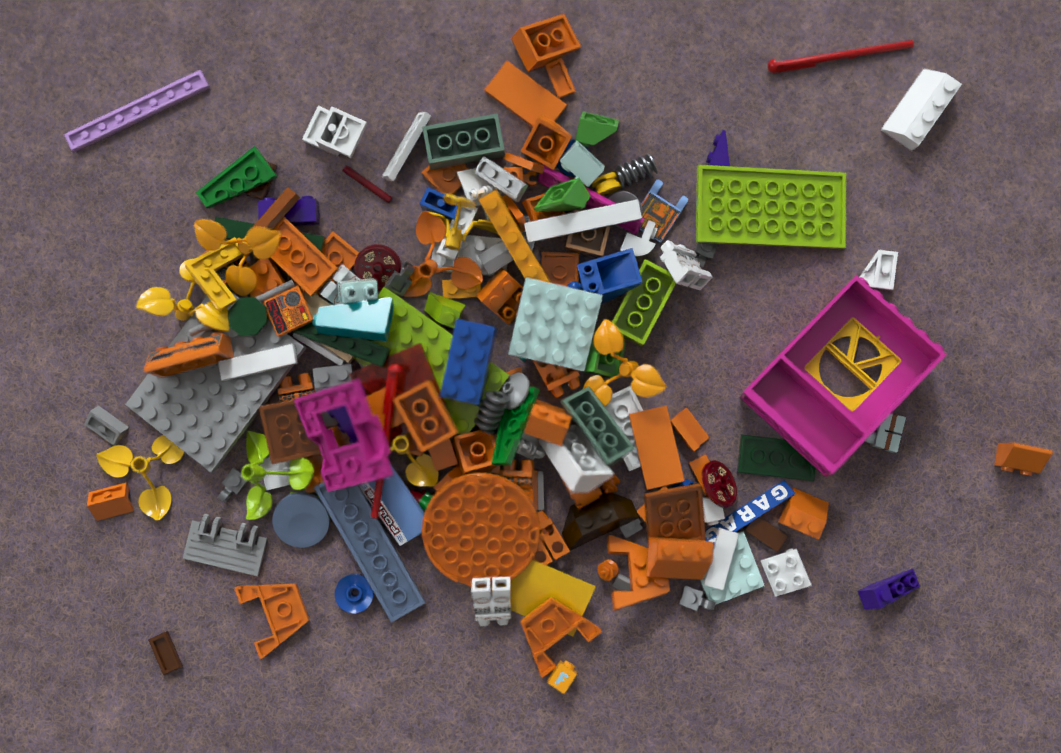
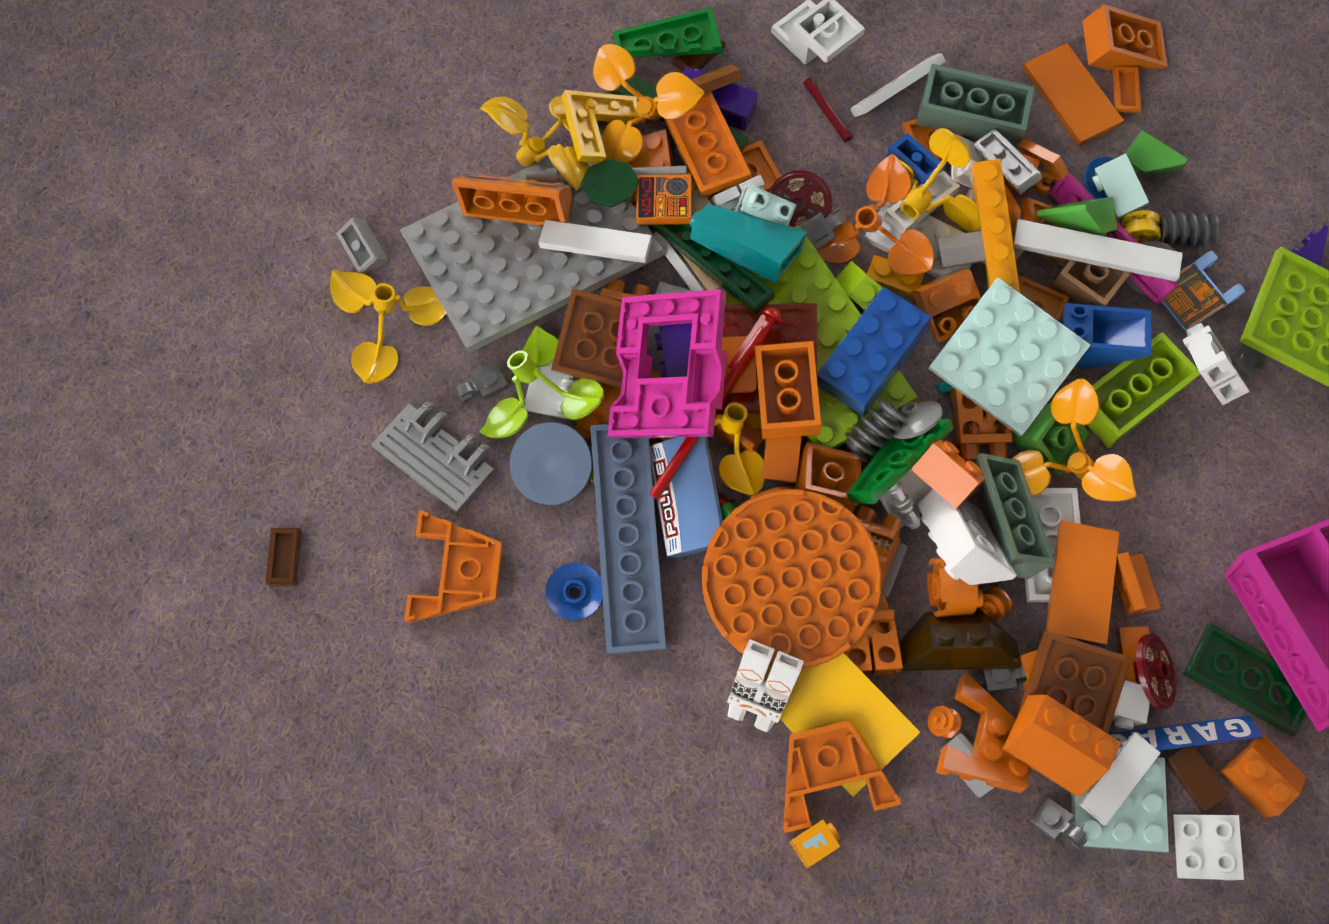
camera: 25 degrees right, 15 degrees down
(109, 502) = (317, 336): orange panel -> none
(546, 142) = (1084, 144): orange slope -> none
(642, 245) = (1165, 318): white brick -> none

